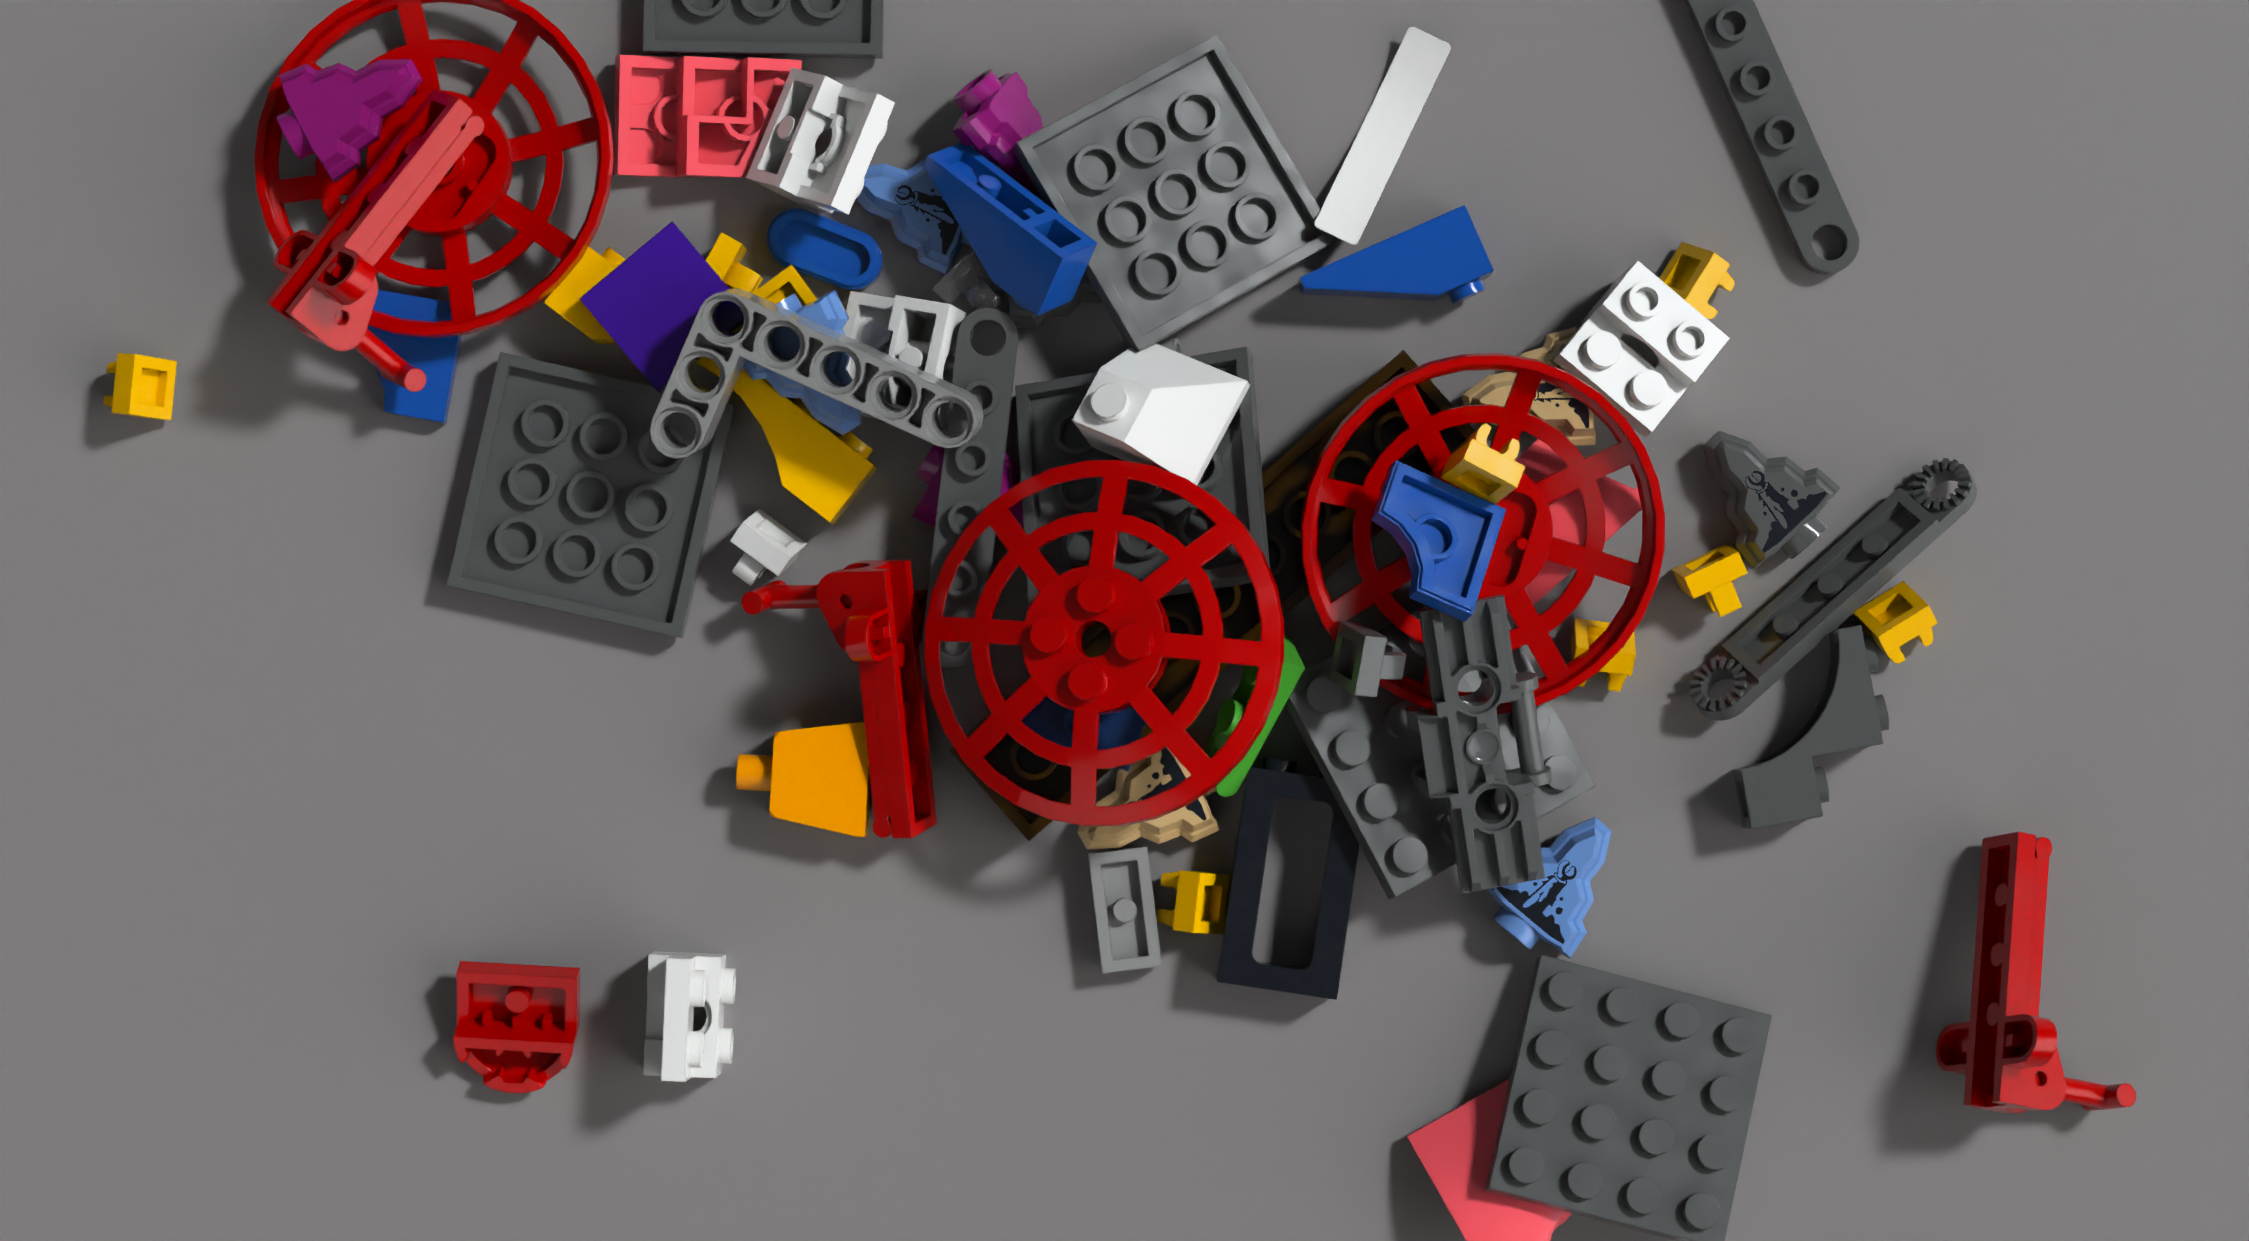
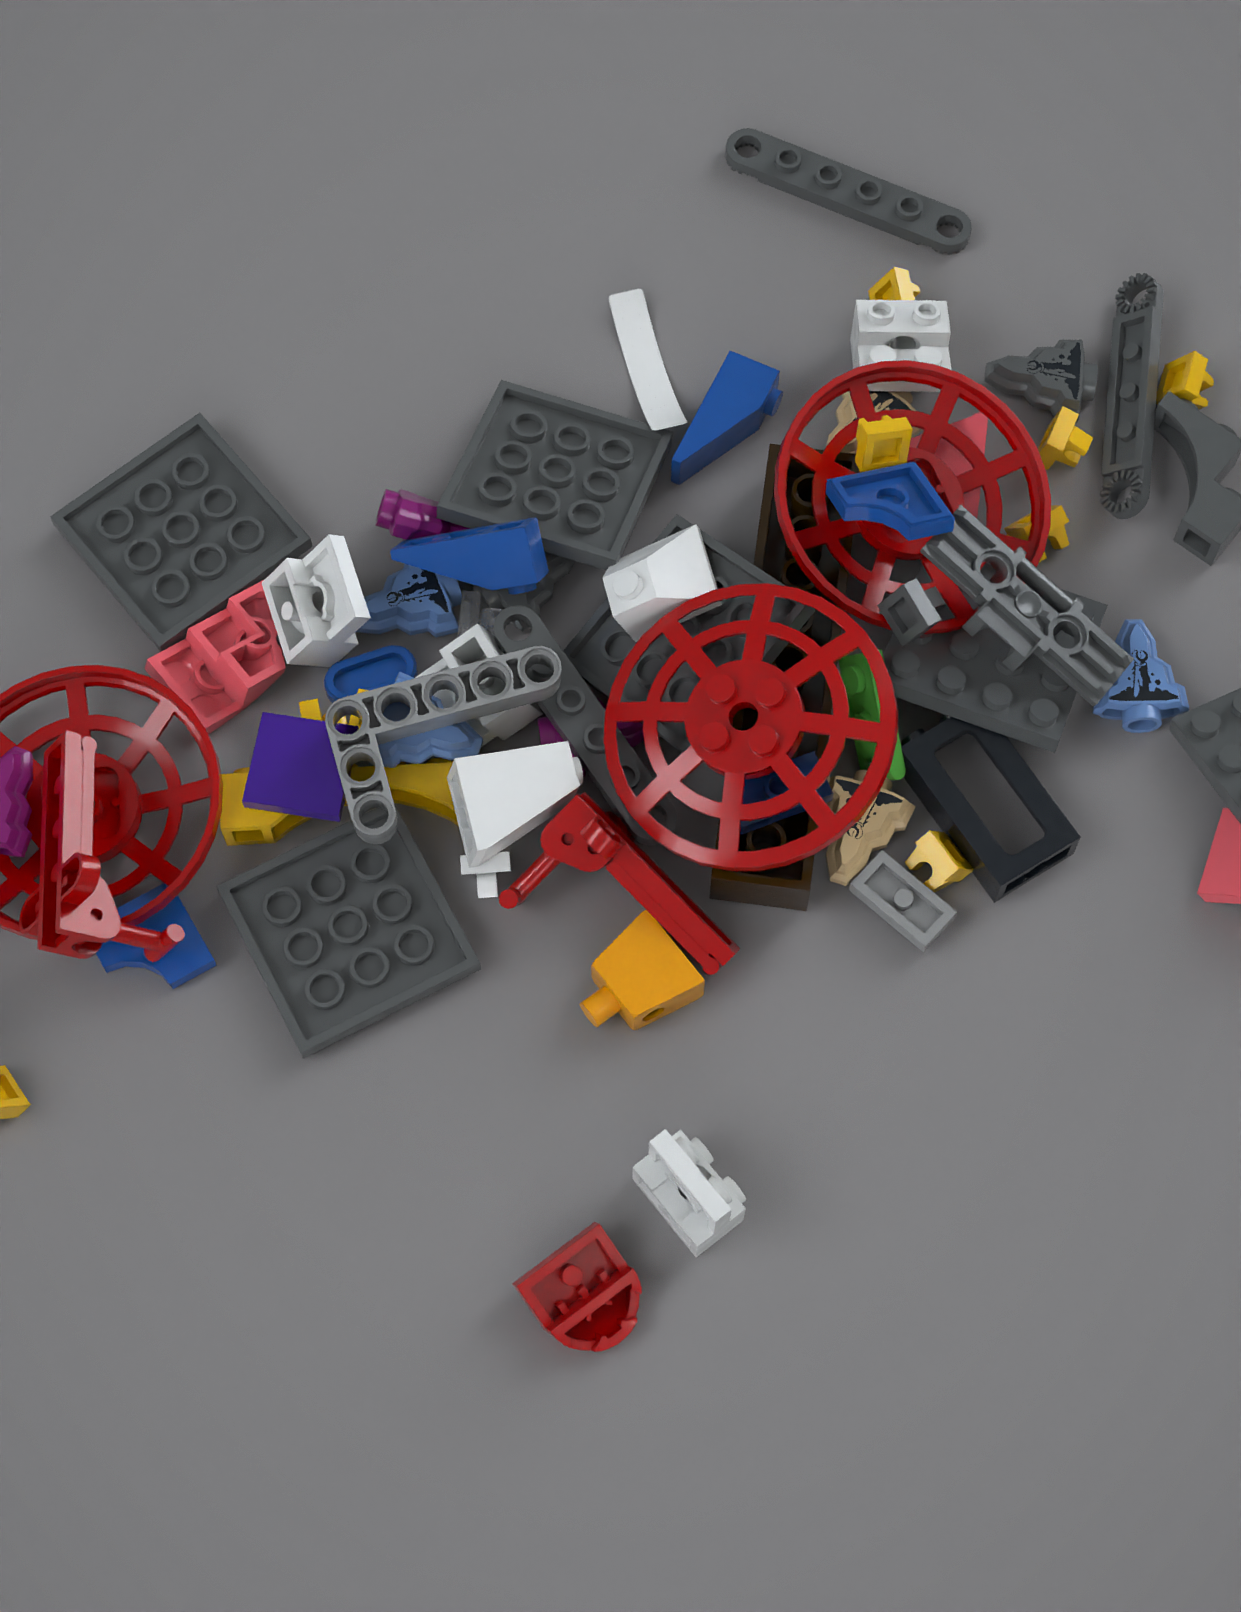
camera: 40 degrees left, 20 degrees down
(831, 511) = (510, 794): none -> white slope

